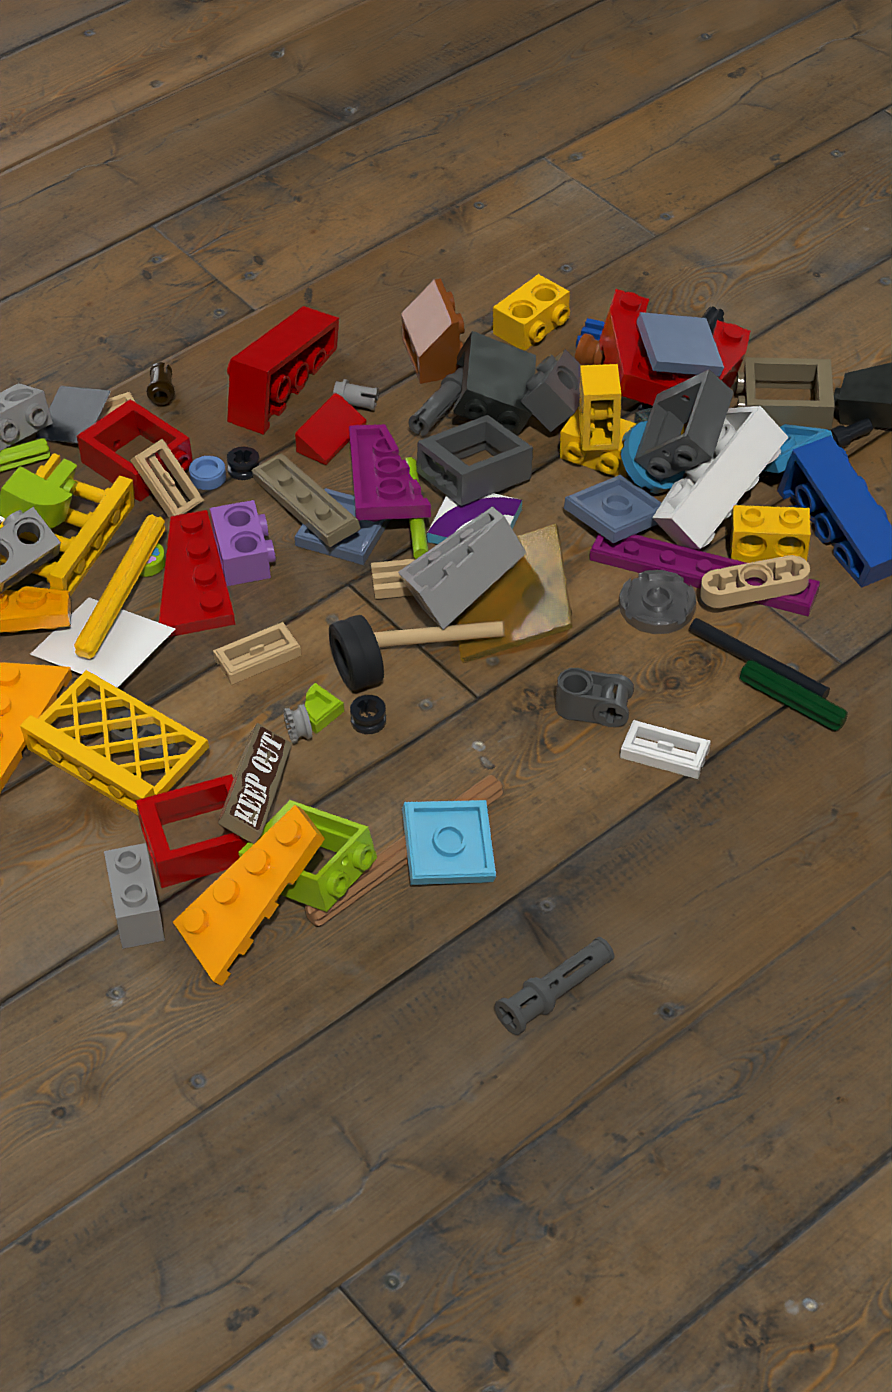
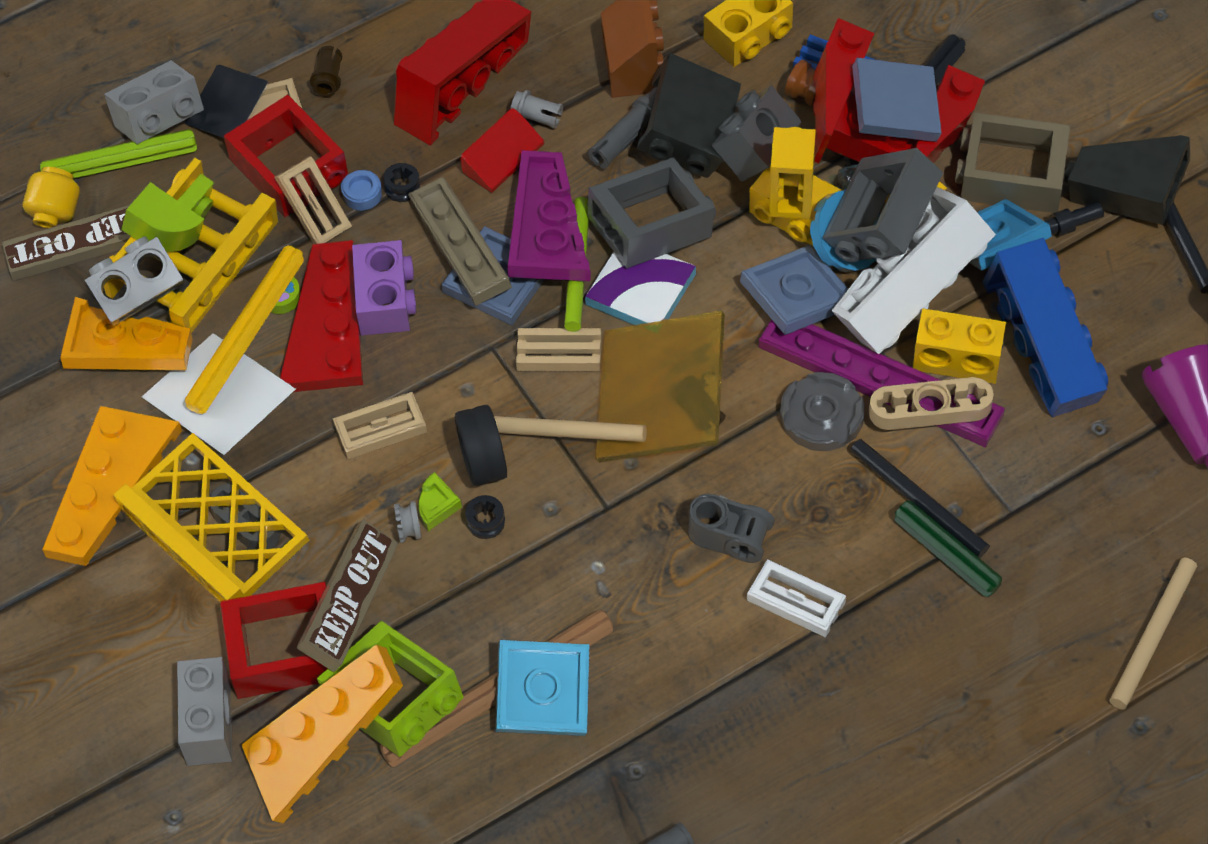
camera: 10 degrees right, 10 degrees up
(463, 566) = (610, 355): light grey wedge -> none

